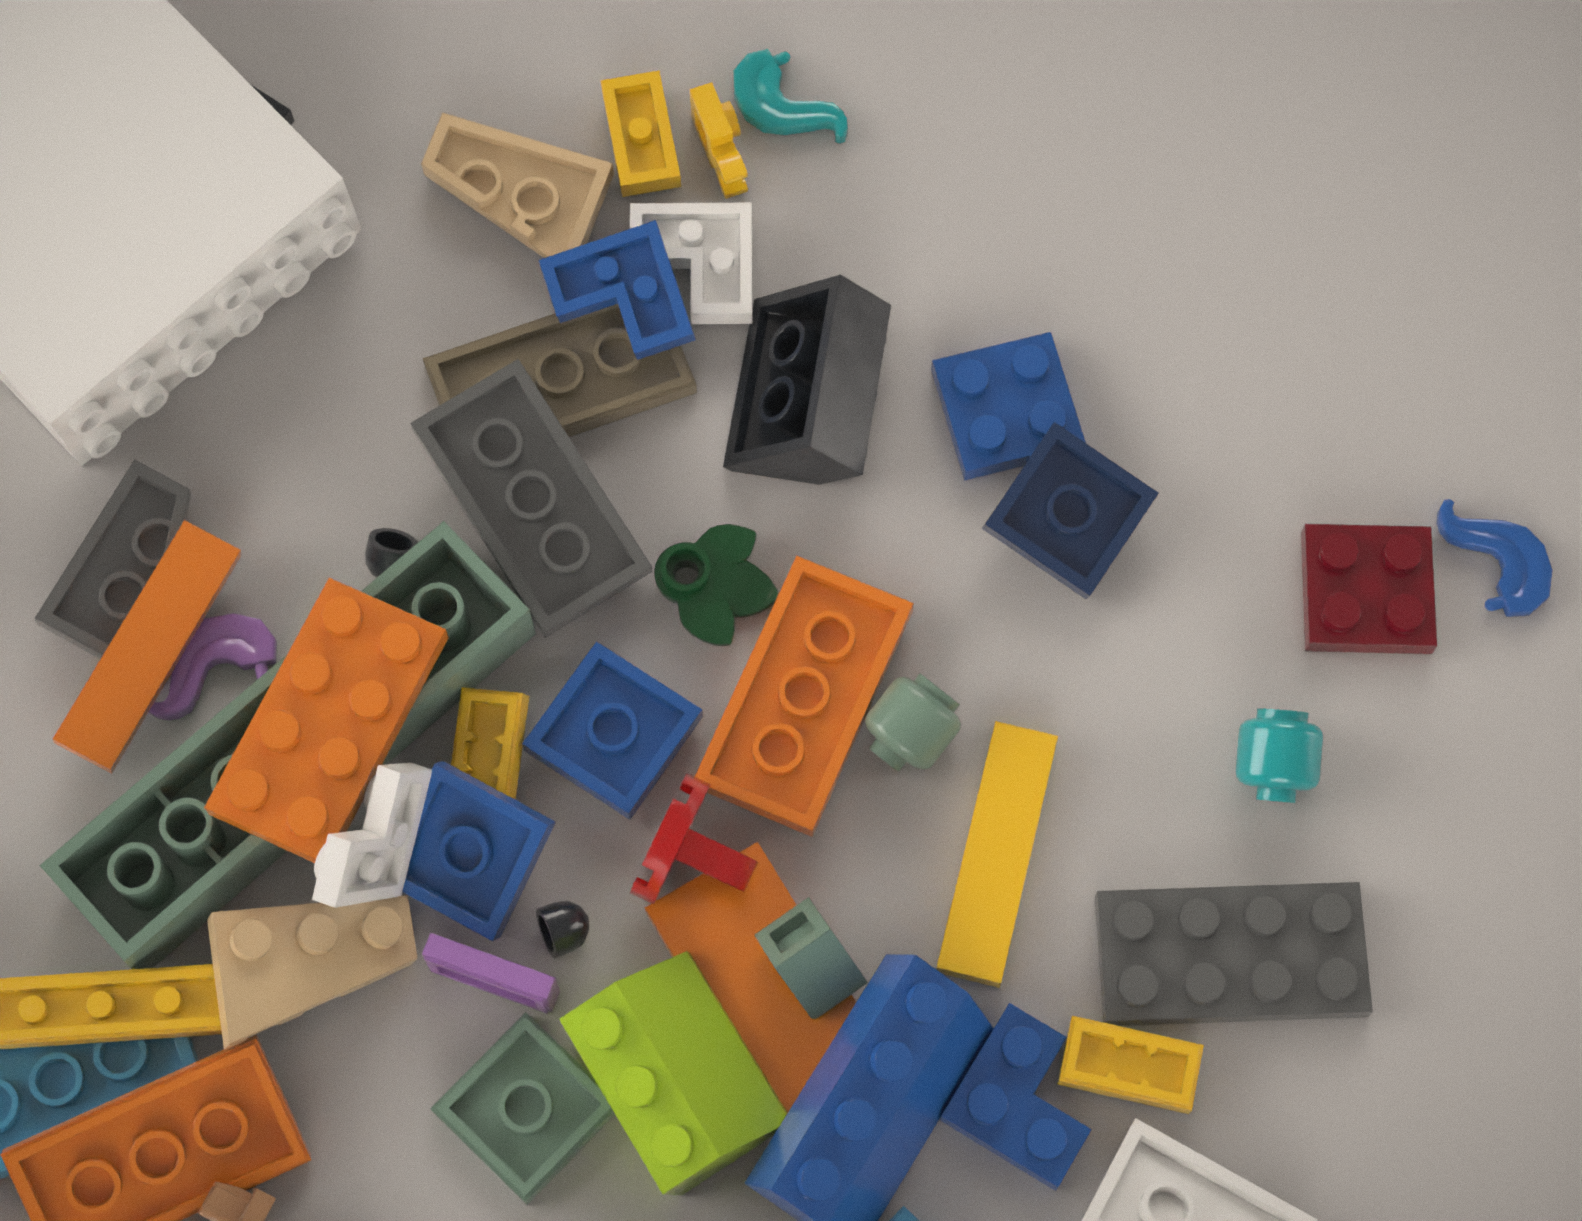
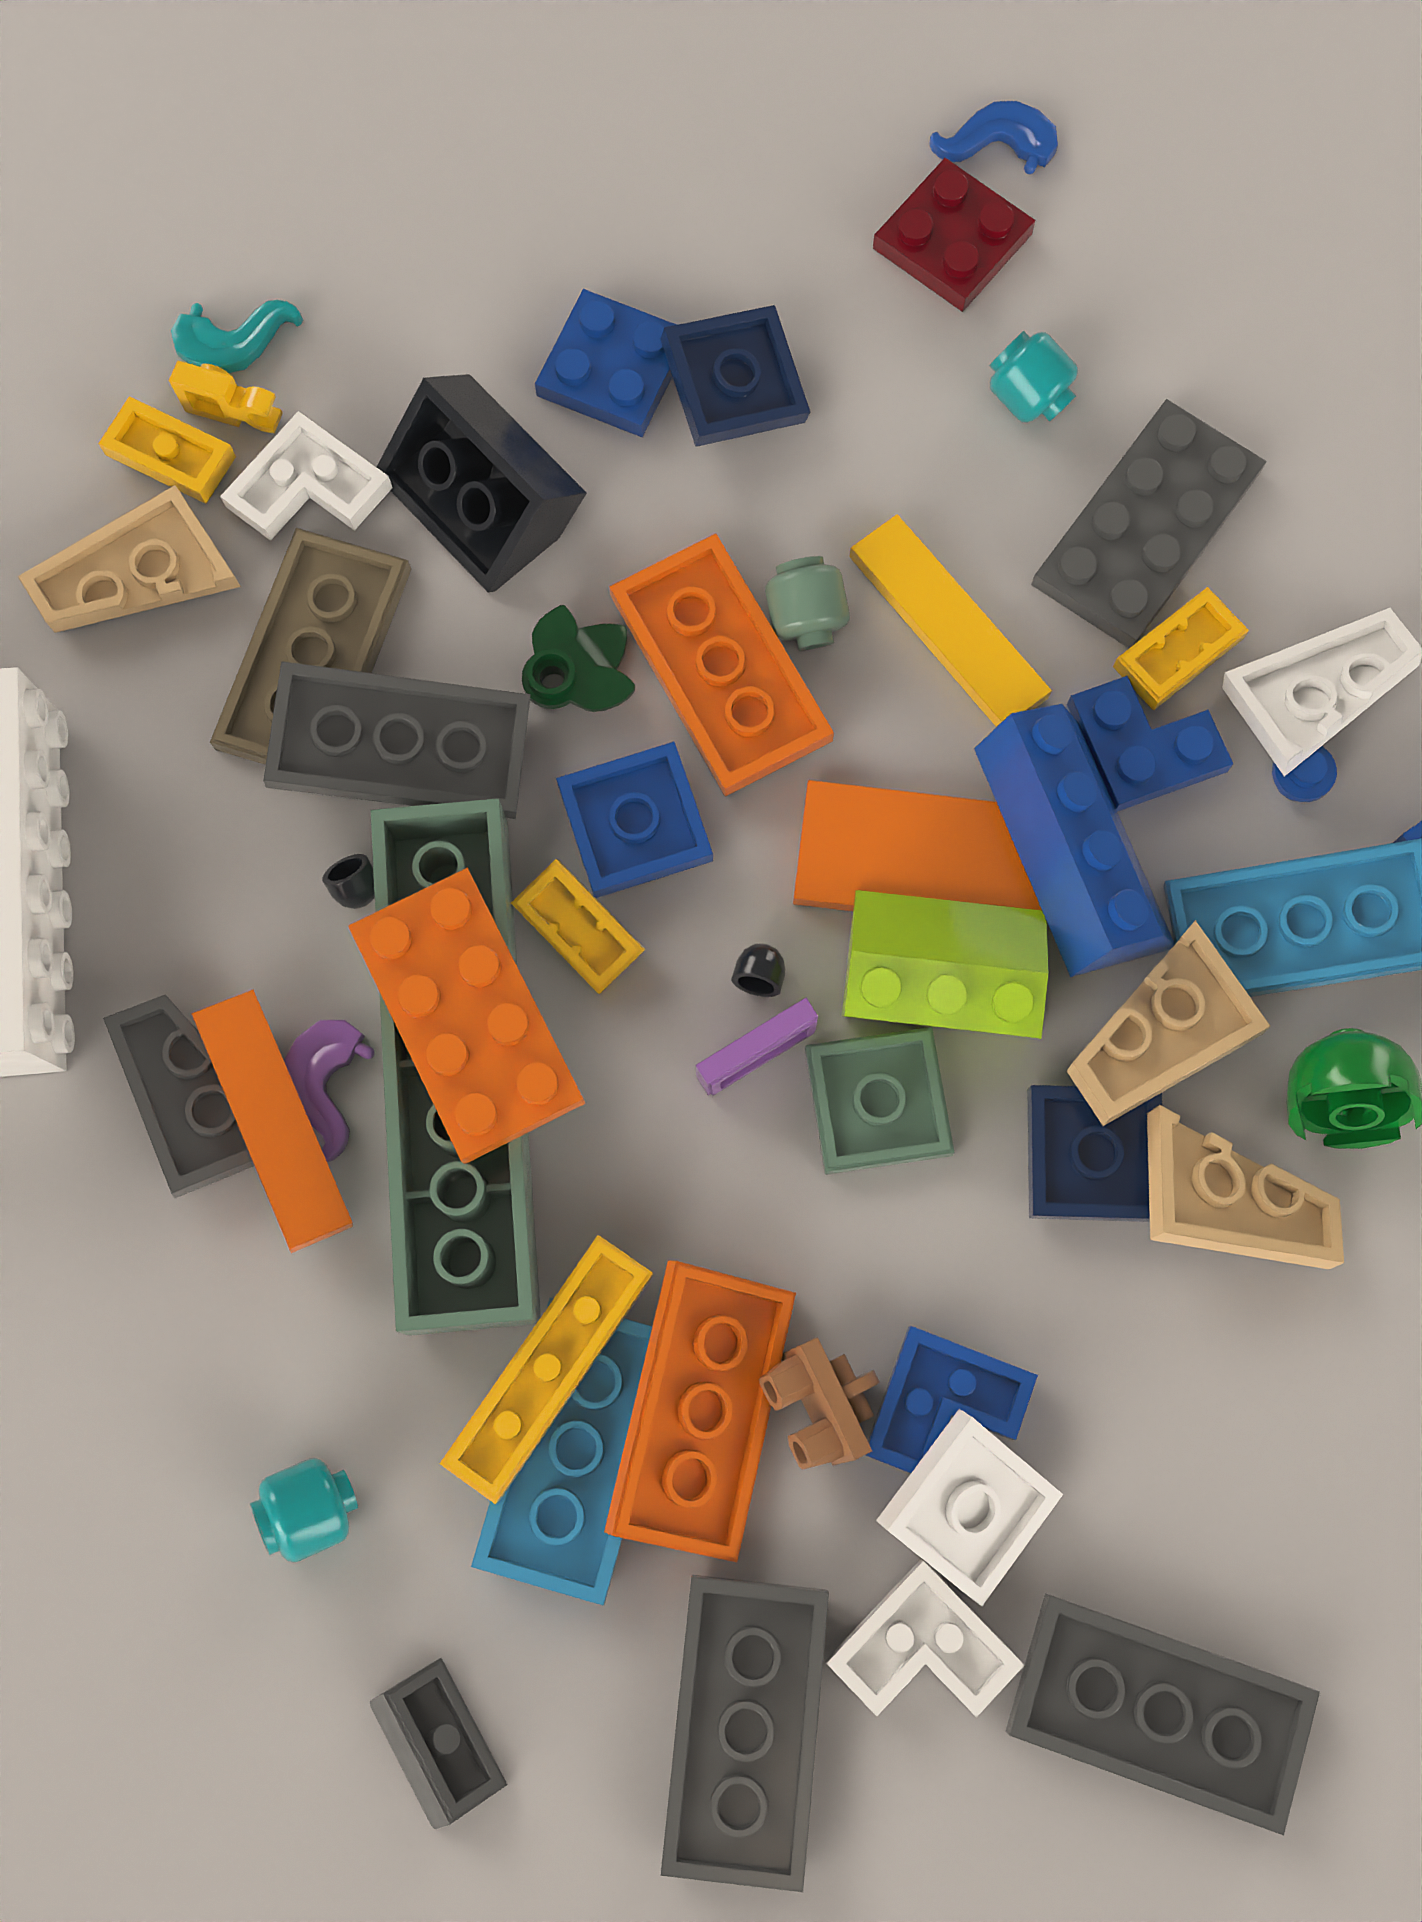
camera: 50 degrees left, 5 degrees up
(296, 957) = (633, 1182): tan wing -> none
(375, 860) = (603, 1070): white plate -> none
(473, 851) = (647, 992): blue plate -> none
(624, 271) = (283, 531): blue plate -> none
(680, 843) = (771, 830): red tile -> none
(810, 959) = (933, 801): sand green panel -> none

